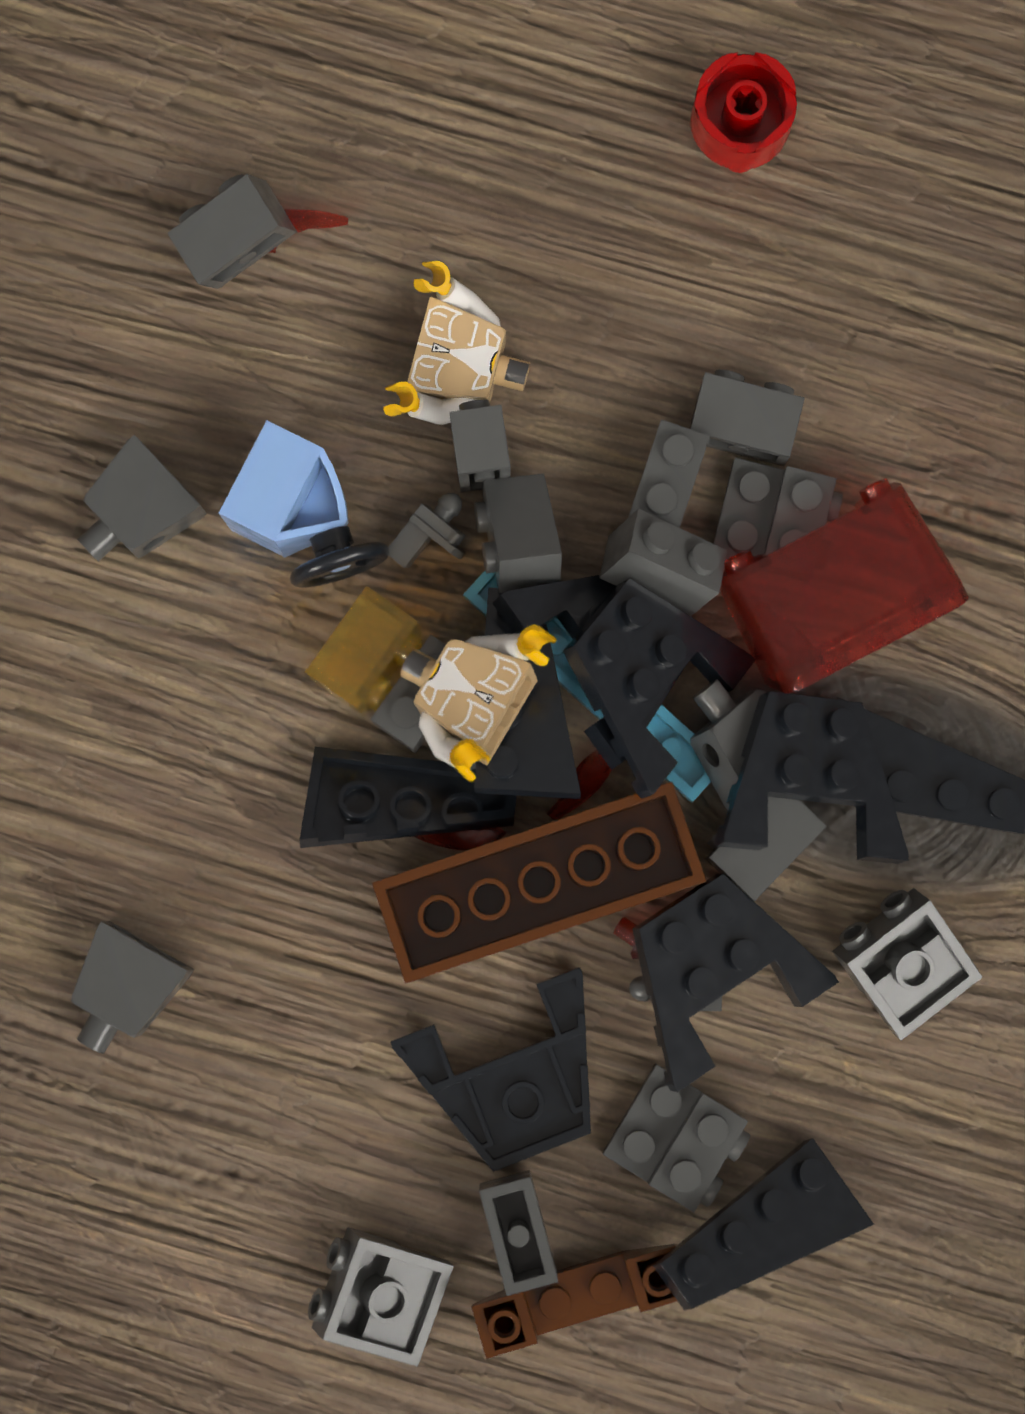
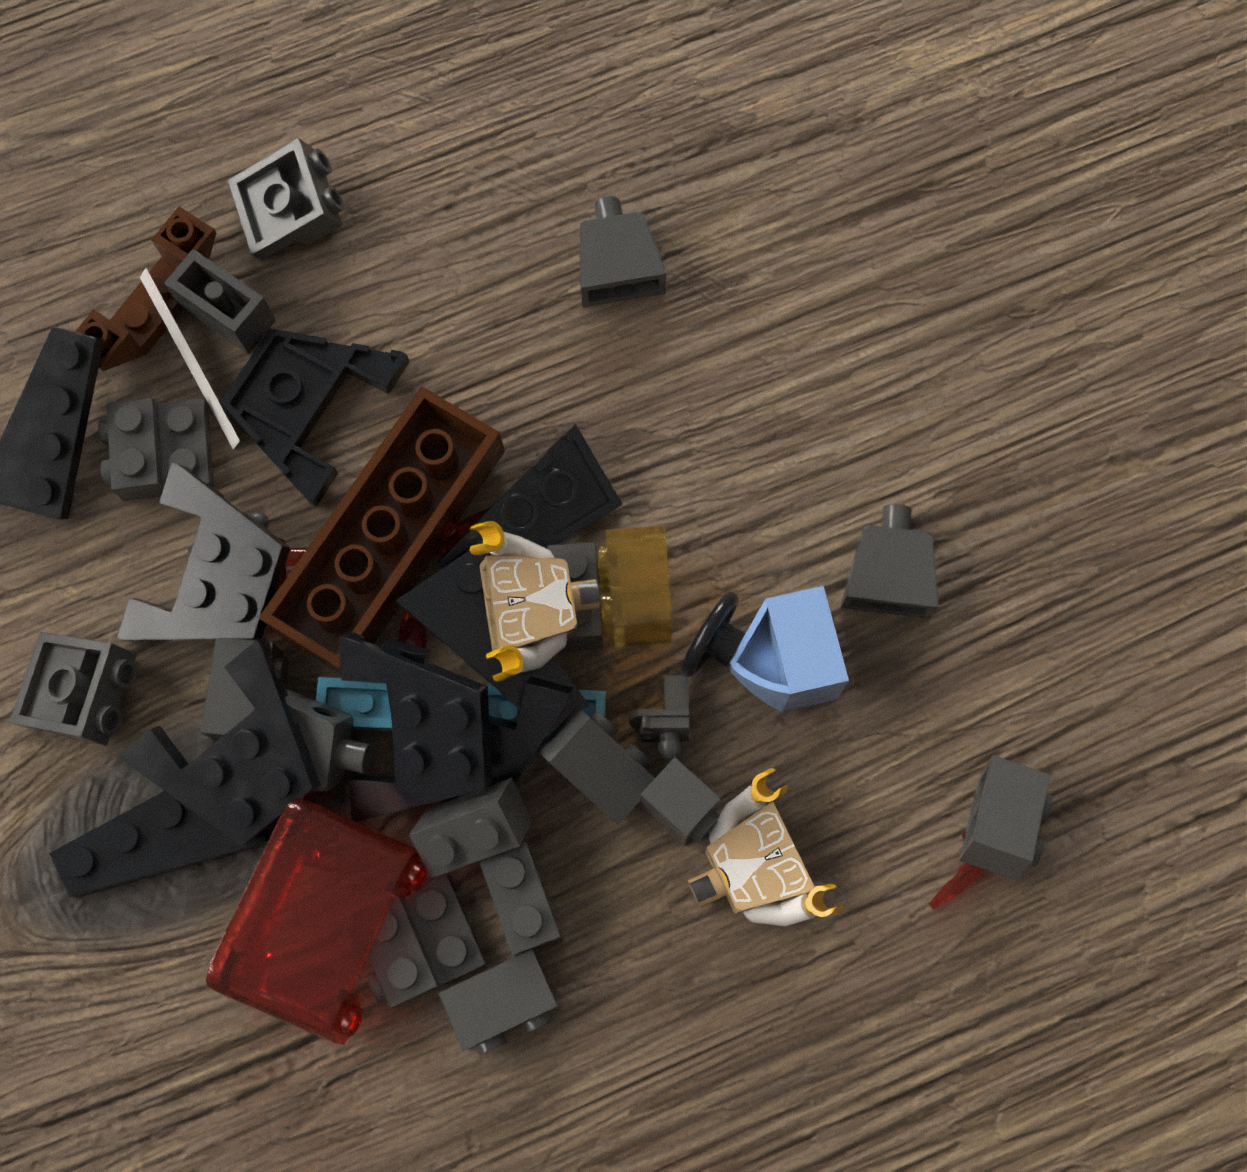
camera: 145 degrees right, 10 degrees down
(586, 1205) = (189, 359): none -> white sticker

